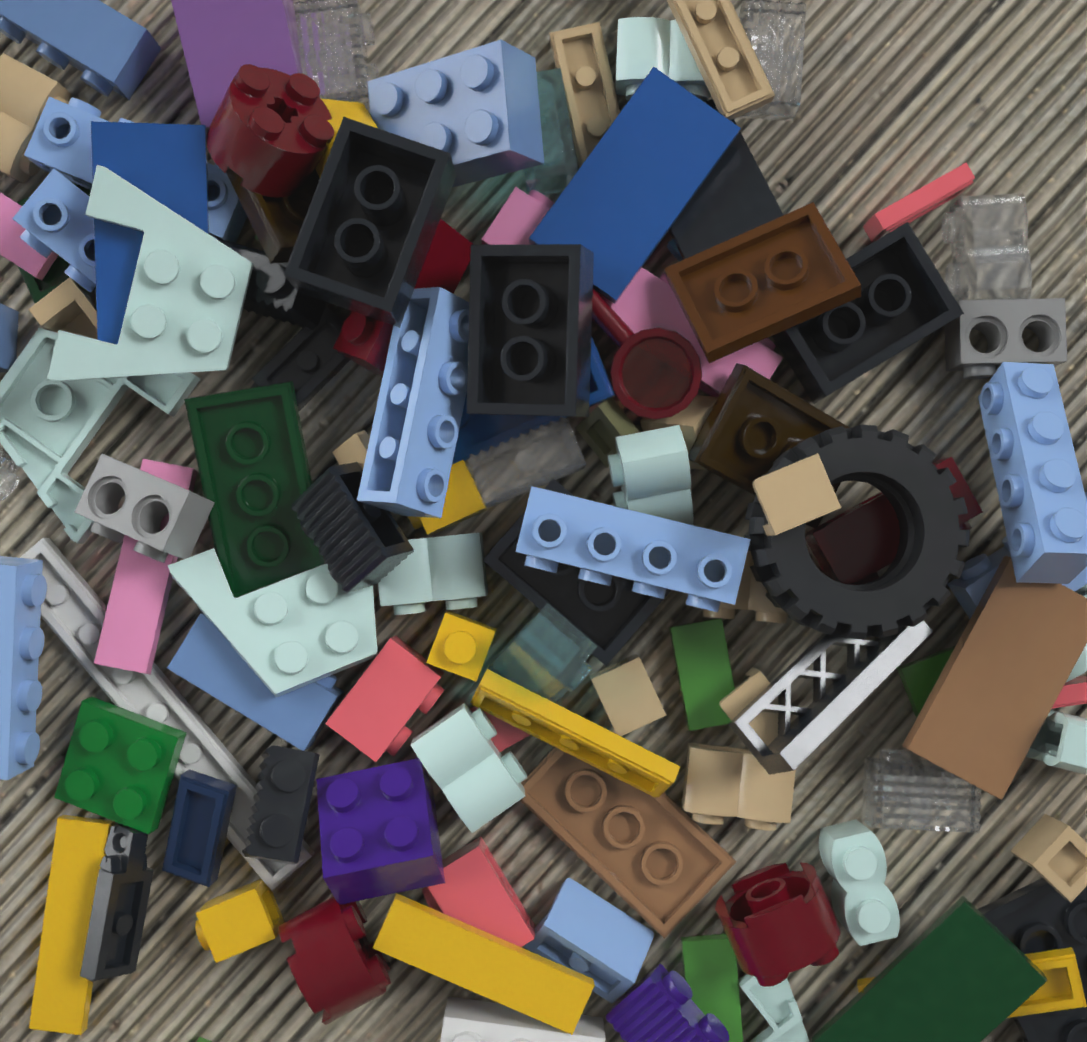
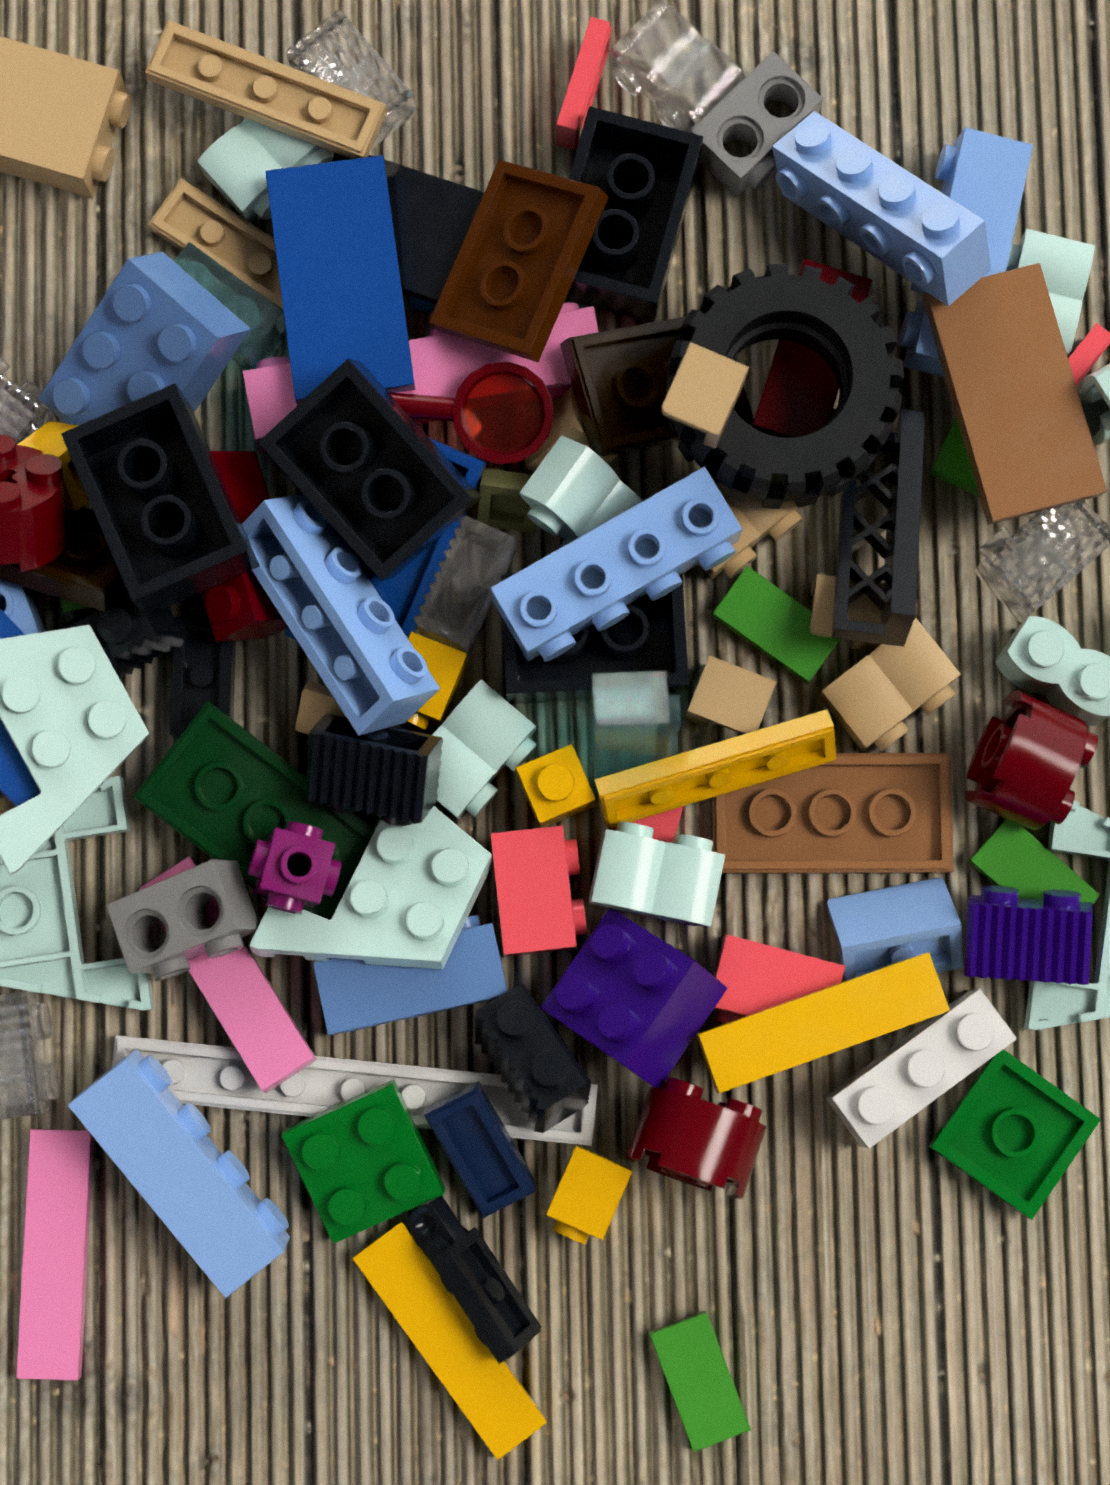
camera: 45 degrees left, 5 degrees down
(247, 524) = (274, 880): none -> magenta brick

